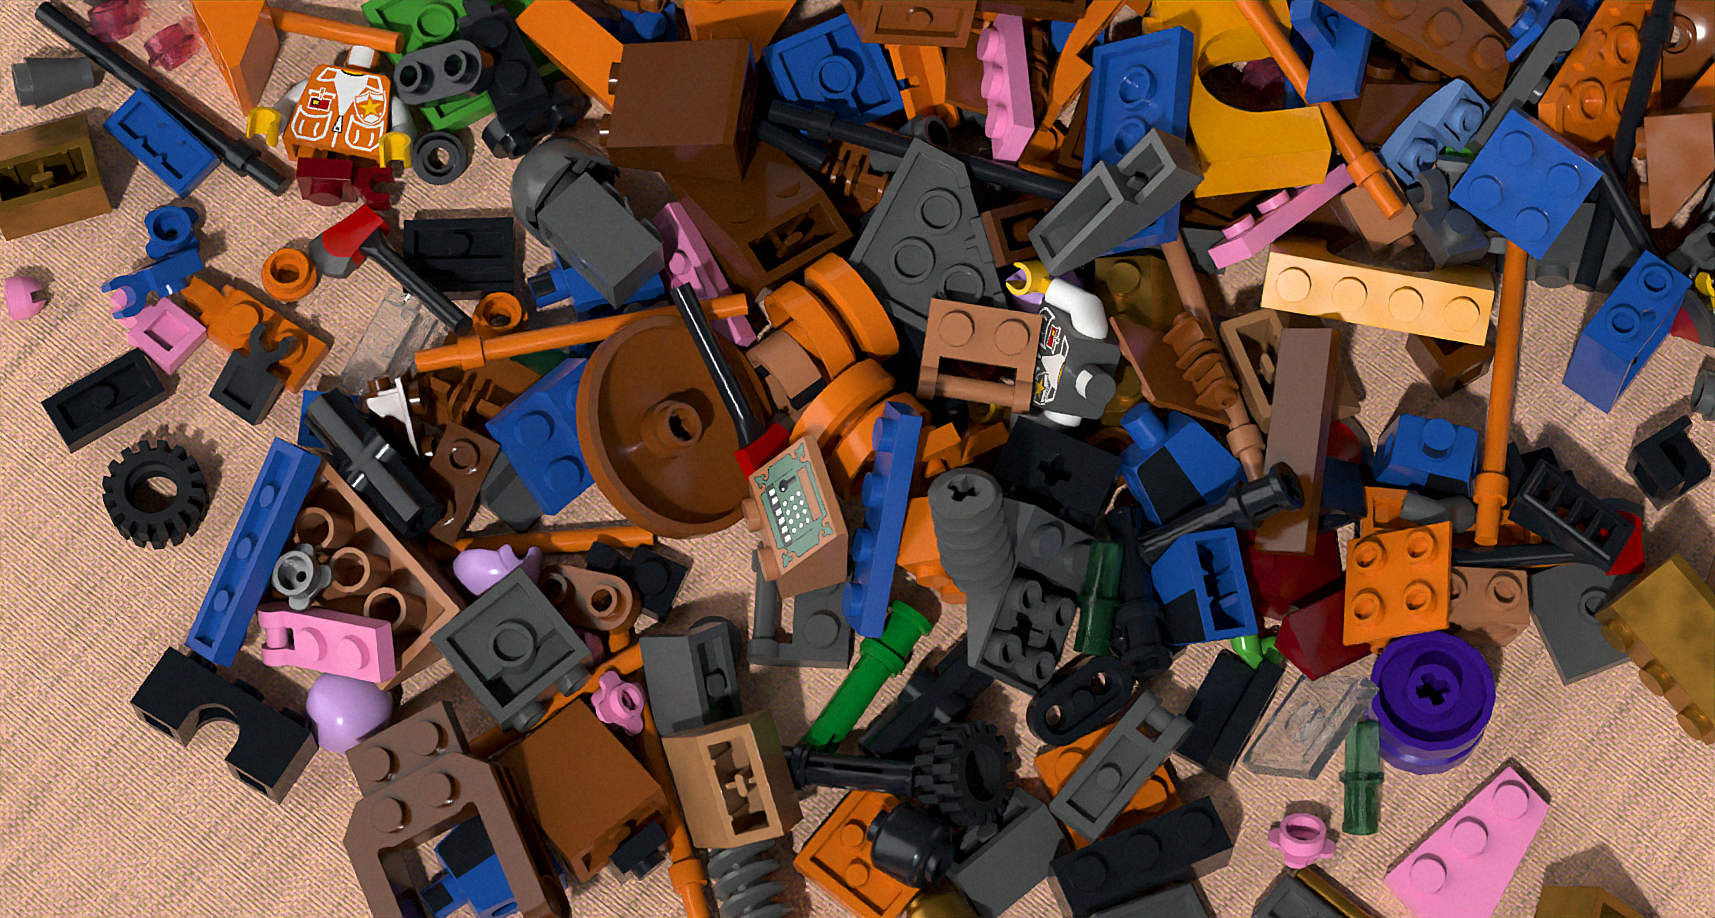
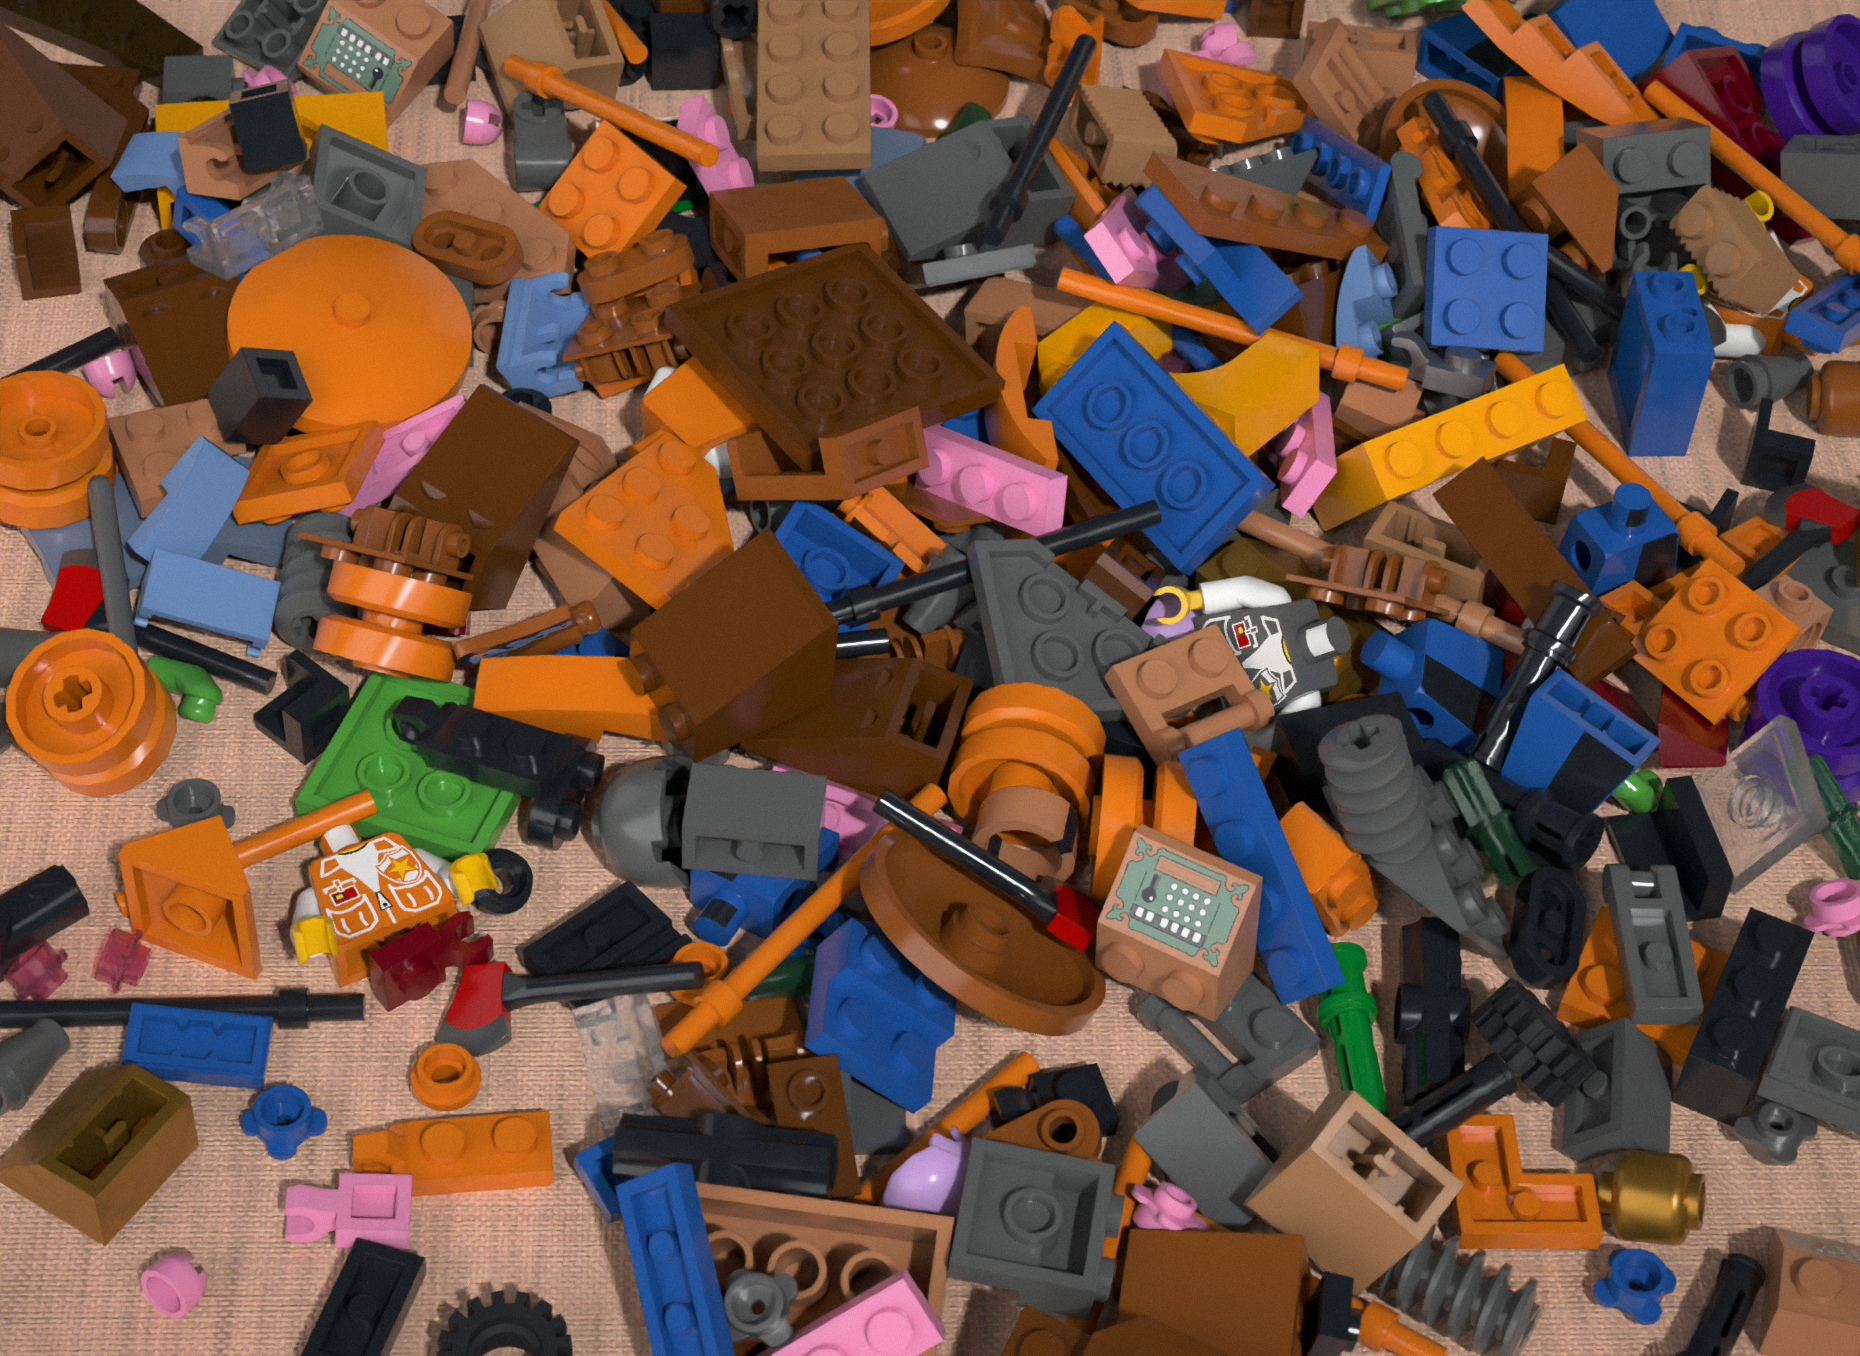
camera: 45 degrees left, 20 degrees down
(163, 276) = (323, 1158): blue plate -> none
(250, 378) = (506, 1191): black plate -> none
(438, 76) = (454, 795): black plate -> none
(911, 845) = (1558, 1131): black head -> none
(1116, 202) = (1202, 481): dark grey slope -> none
(1429, 511) = (1664, 580): dark grey arm -> none
(1546, 523) = (1773, 510): black slope -> none

